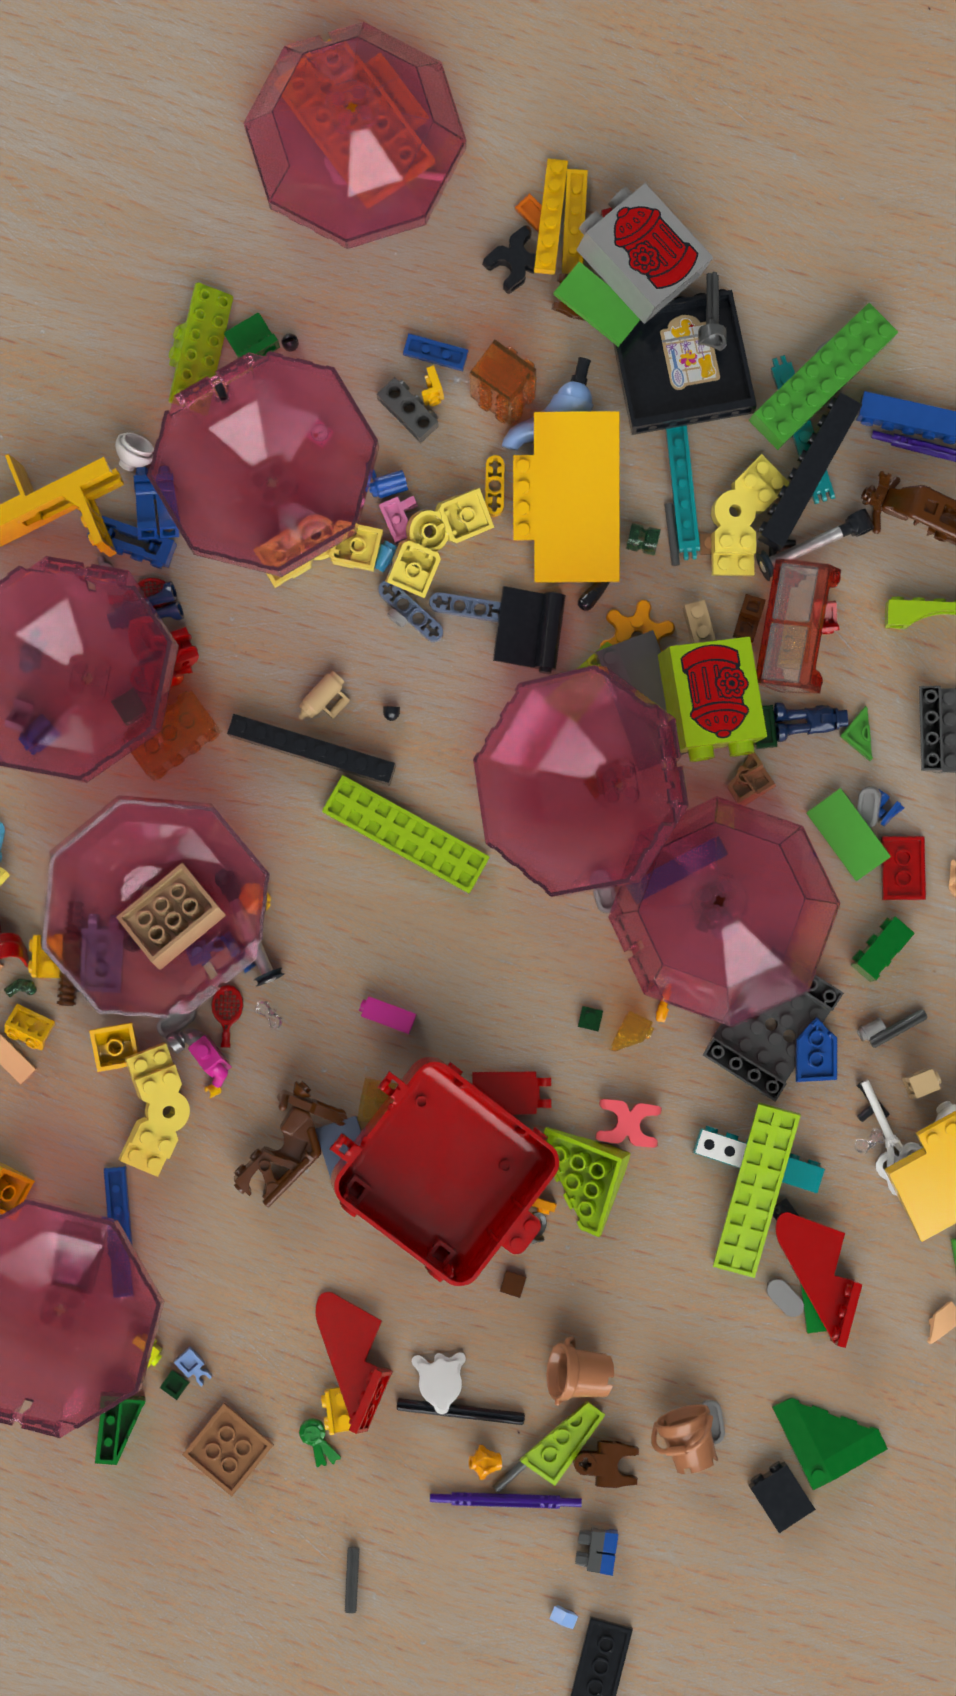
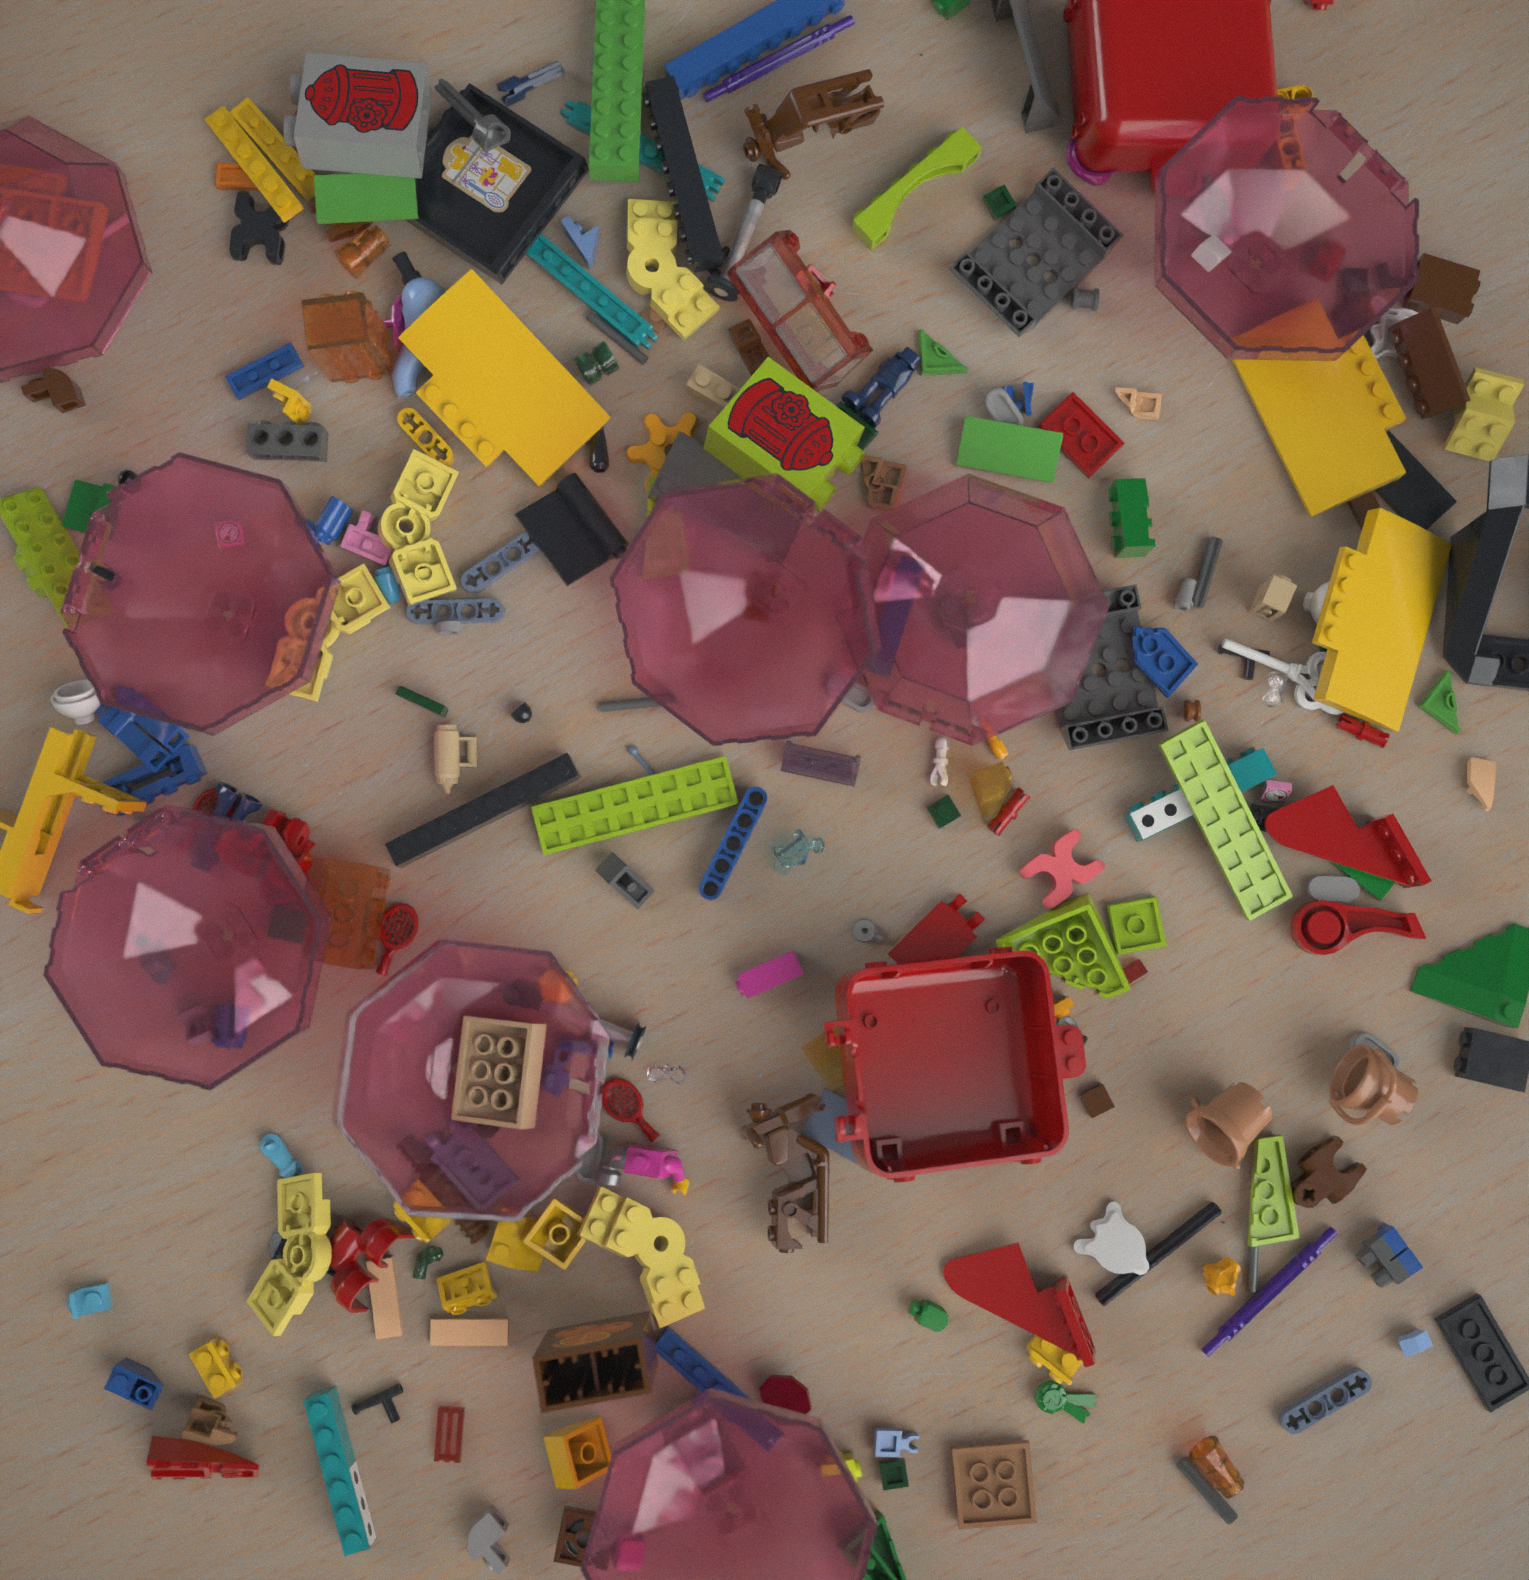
camera: 50 degrees left, 0 degrees up
(66, 1141) = (596, 1362): none -> reddish brown brick
(77, 1026) = (508, 1245): none -> yellow slope
(159, 1271) = (786, 1393): none -> dark red piece
(168, 783) = (386, 959): none -> red piece
(287, 1311) = (929, 1314): none -> green arm
(302, 245) = (59, 387): none -> reddish brown brick
(338, 647) = (422, 701): none -> dark green tile
(355, 873) = (624, 880): none -> dark grey slope
(371, 1571) = (1216, 1466): none -> clear orange plant
(437, 799) = (633, 750): none -> sand blue hinge
(451, 907) = (742, 834): none -> blue beam
(459, 766) = (627, 704): none -> dark grey piece
(472, 1050) = (871, 931): none -> light grey piece
(474, 1601) = (1322, 1395): none -> sand blue beam
(475, 956) = (795, 852): none -> clear light blue piece
(542, 917) = (820, 764): none -> container
(545, 398) = (396, 322): none -> dark pink piece
(566, 333) = (362, 251): none -> clear orange plant
(613, 1228) = (1134, 970): none -> clear red piece
(618, 986) = (940, 761): none -> white piece
(630, 1057) = (1008, 811): none -> red pin
(641, 1202) = (1136, 925): none -> lime tile
(709, 458) = (584, 243): none -> medium blue slope
(757, 318) = (518, 86): none -> dark blue piece
(759, 1317) = (1329, 926): none -> red animal
(804, 1104) = (1192, 710): none -> dark orange bush
(807, 1203) = (1275, 791): none -> bright pink tile
(899, 1219) = (1362, 730): none -> red pin

